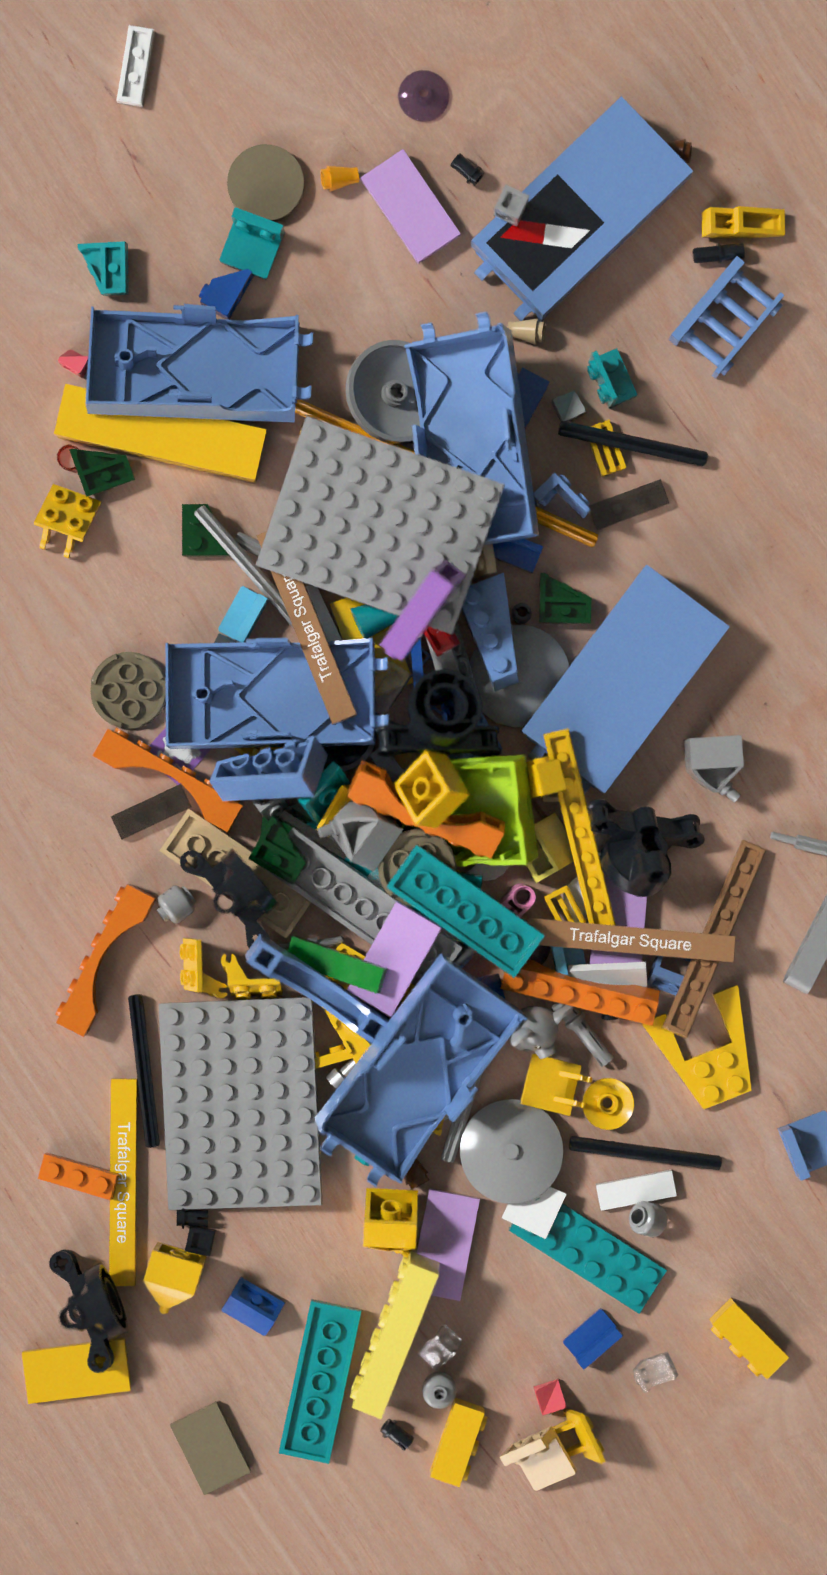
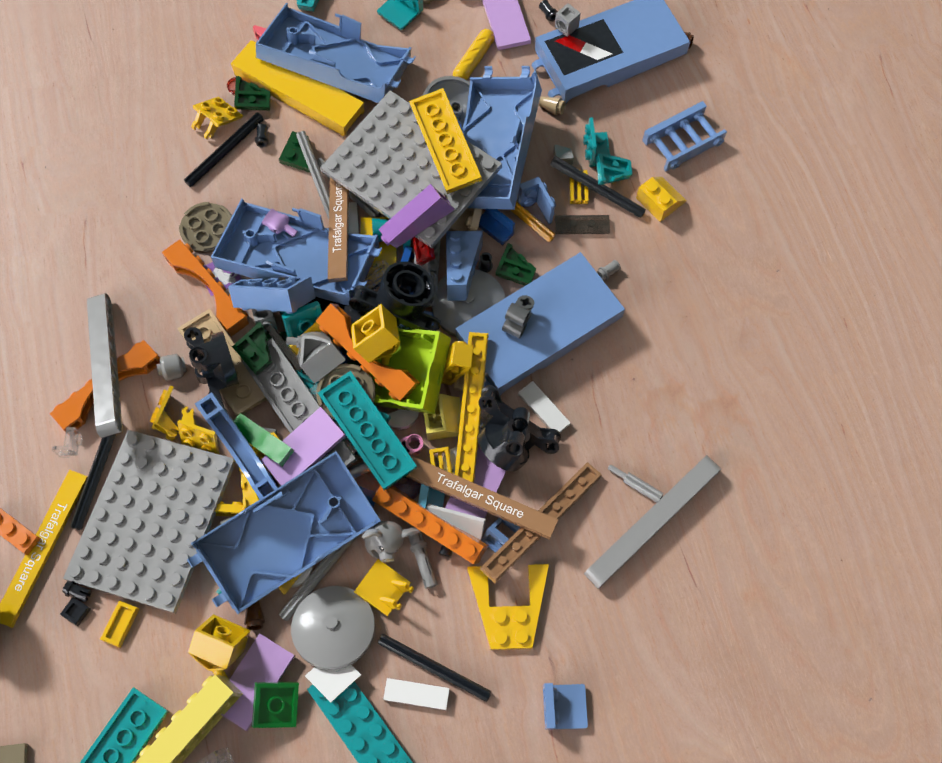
camera: 25 degrees right, 20 degrees down
(96, 937) = (104, 366): none -> light grey beam
(98, 1042) = (72, 441): none -> clear bracket
(99, 565) = (223, 149): none -> black axle
(143, 526) = (261, 139): none -> black pin
(151, 811) = (184, 305): clear smoke tile -> none
(173, 1275) = (39, 626): yellow piece -> none
(226, 292) = (375, 26): blue slope -> none
(231, 662) = (278, 222): none -> lavender piece
(243, 614) = (307, 201): medium azure panel -> none
(253, 1306) = (88, 676): blue panel -> none
(259, 1235) = (119, 624): none -> yellow tile
(386, 286) = (474, 54): none -> yellow piece
(417, 479) = (445, 141): none -> yellow plate
(482, 1262) = (275, 704): none -> green plate
(531, 391) = (541, 139): blue slope -> none
(601, 693) = (518, 316): none -> dark grey piece
(608, 1117) = (419, 606): yellow dish -> none
(644, 408) = (612, 168): none -> teal wing
(648, 1219) = (416, 718): light grey head -> none
(665, 787) = (543, 407): none -> white tile
(686, 563) = (608, 270): none -> light grey pin
(715, 762) = (585, 396): light grey piece -> none
(718, 253) = (689, 100): black axle -> none
(722, 426) = (659, 197): none -> yellow slope
(743, 222) = (712, 88): yellow slope -> none

